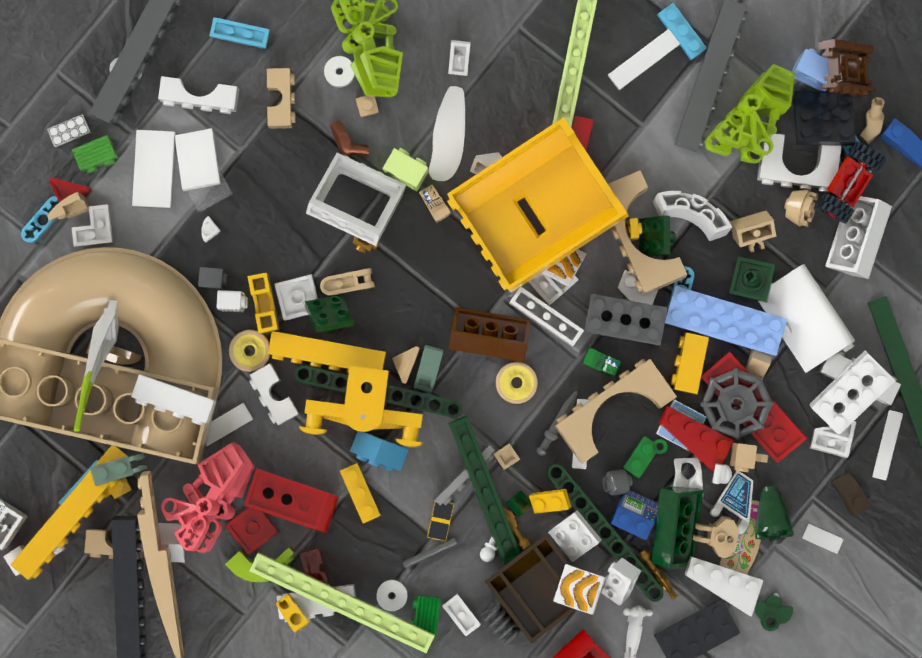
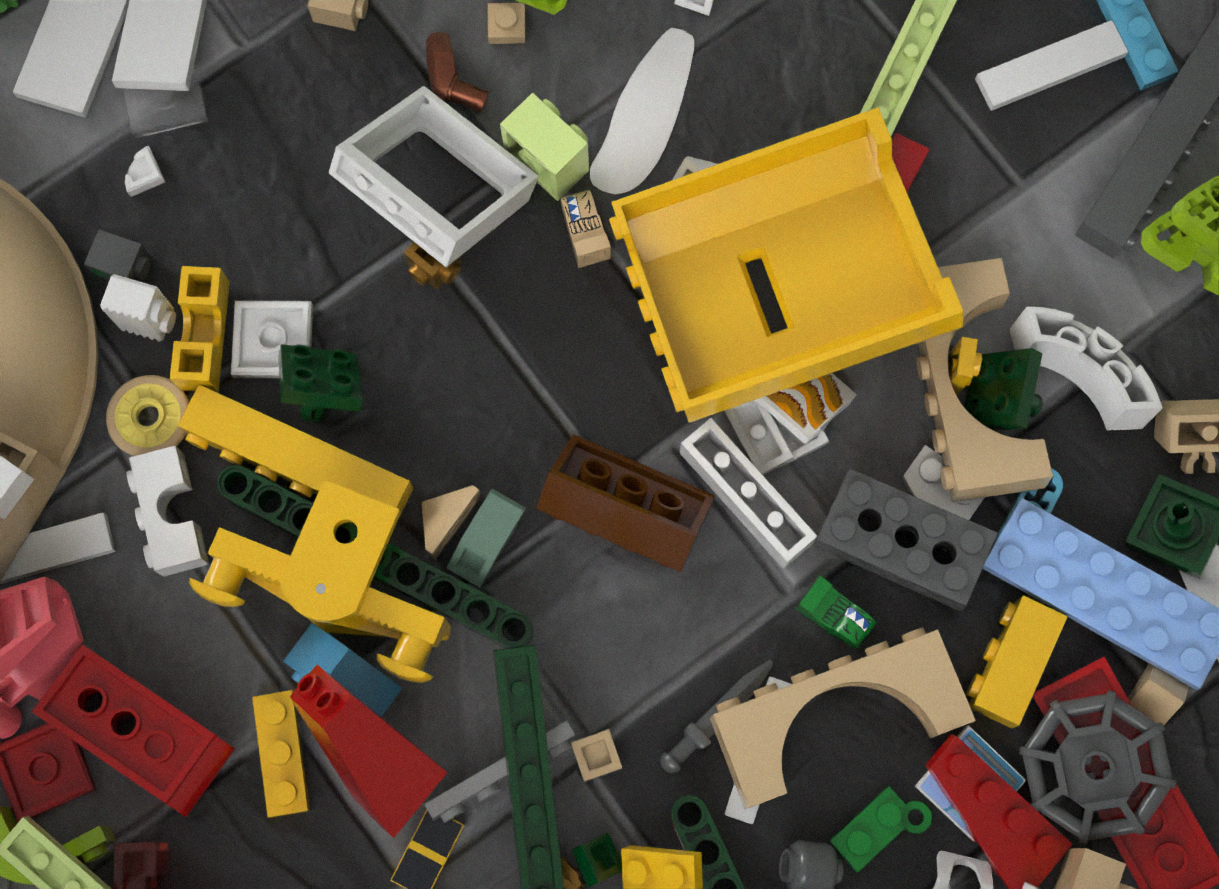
camera: 15 degrees right, 10 degrees down
(346, 282) = (375, 333): tan plate -> none
(405, 485) = (371, 756): none -> red slope
(512, 394) = (651, 637): light yellow wheel -> none

